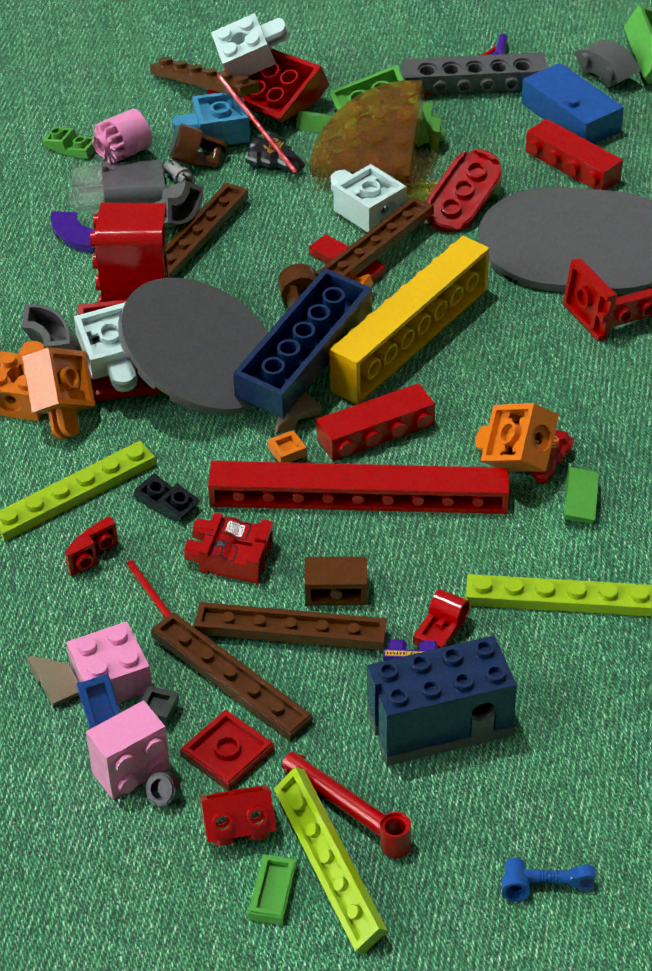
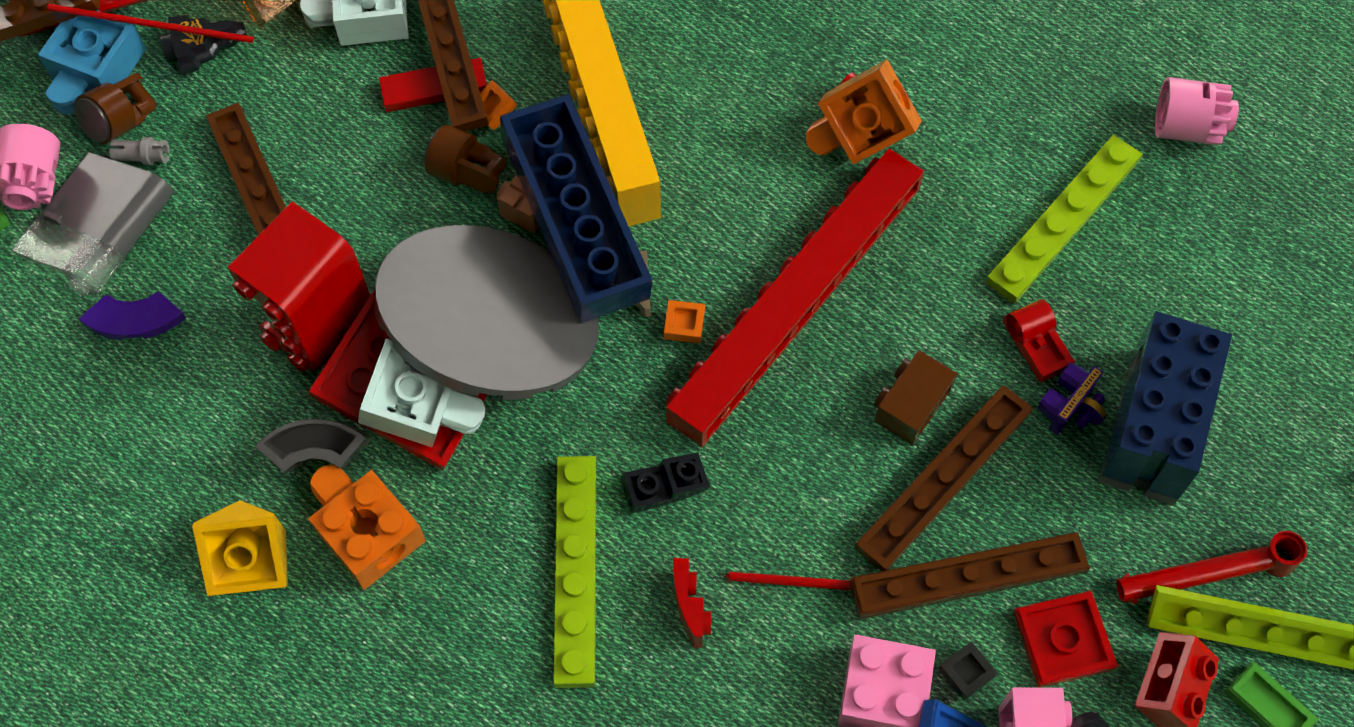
camera: 55 degrees left, 20 degrees up
(59, 387) = (431, 491): orange brick -> none
(182, 203) = (208, 193): dark grey brick -> none
(230, 547) = (794, 463): red hips -> none
(375, 421) = (715, 218): red brick -> none
(581, 495) = (961, 114): bright green slope -> none

